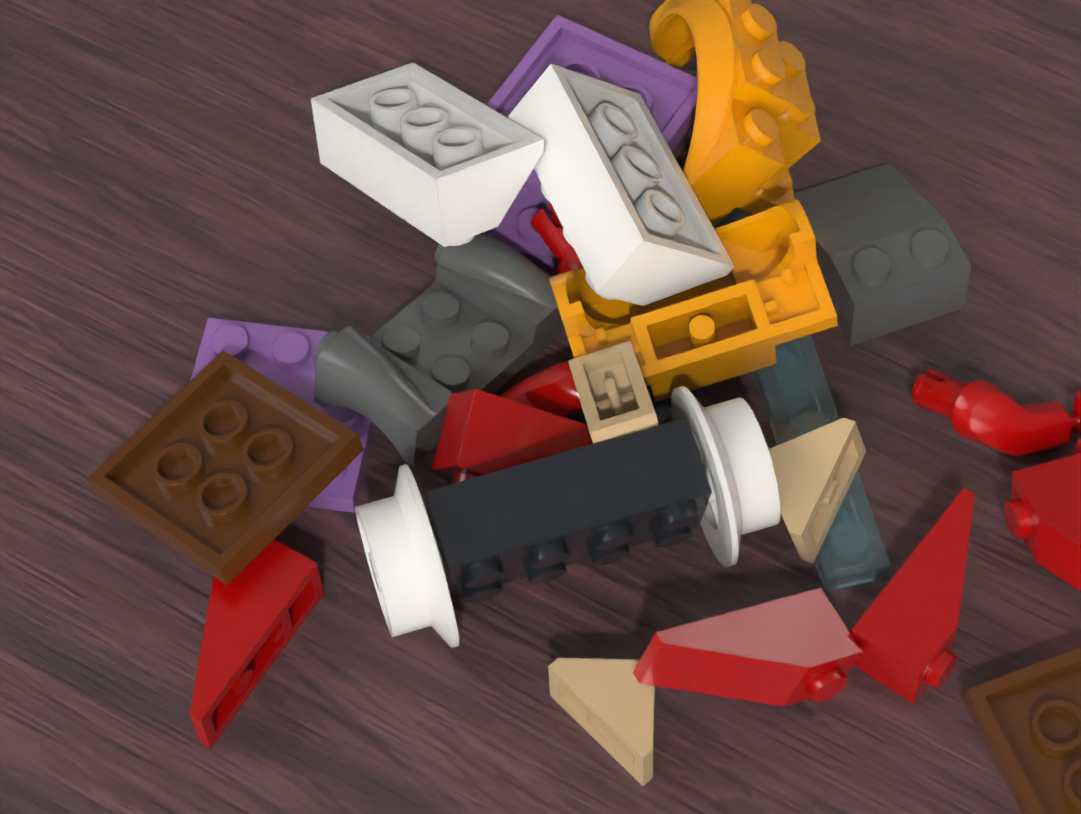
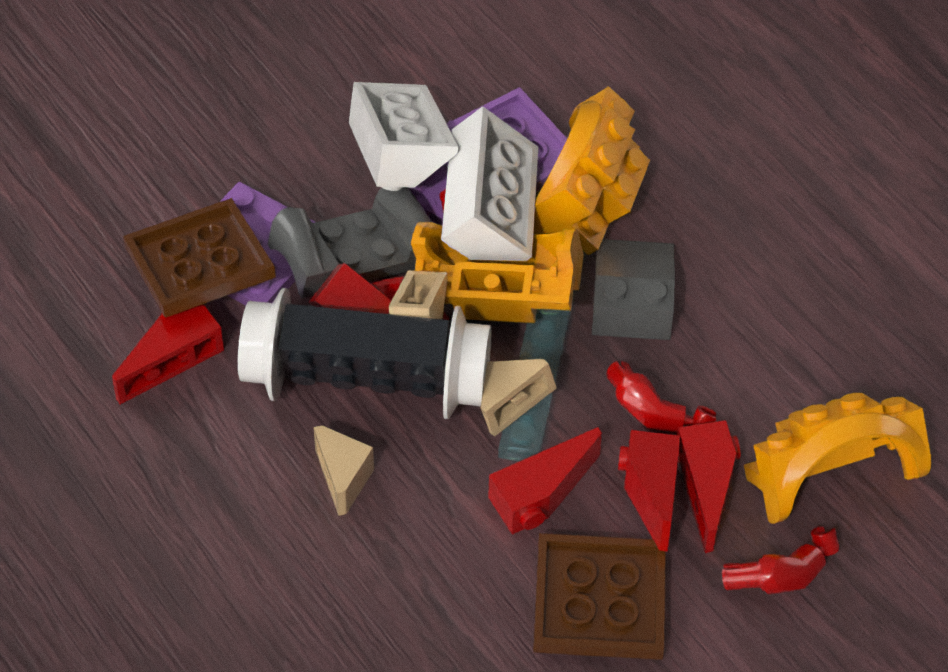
camera: 20 degrees right, 5 degrees down
(757, 653) = (432, 466): slope -> none

